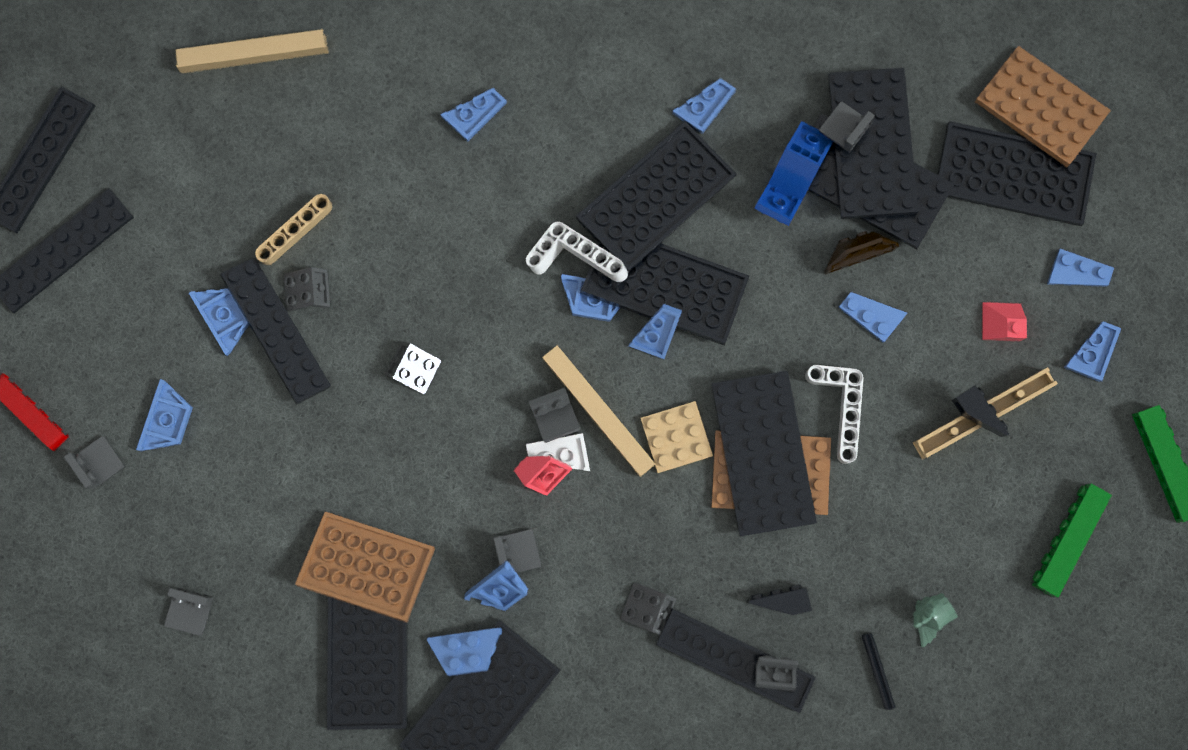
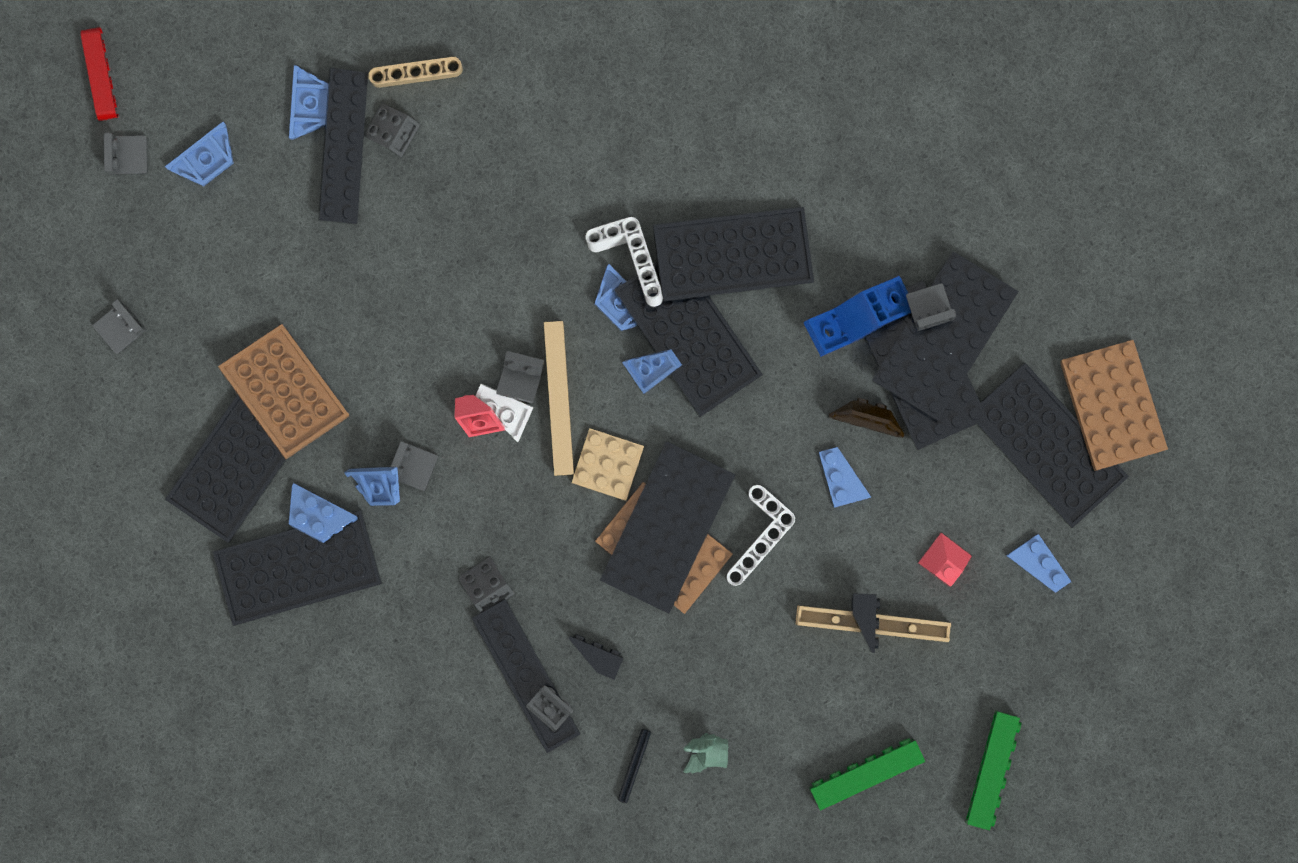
camera: 40 degrees right, 5 degrees up
(413, 367) = (433, 256): bracket -> none
(473, 115) = (633, 77): medium blue wing -> none
(704, 107) = (831, 206): medium blue wing -> none
(1095, 353) = (1002, 639): medium blue wing -> none

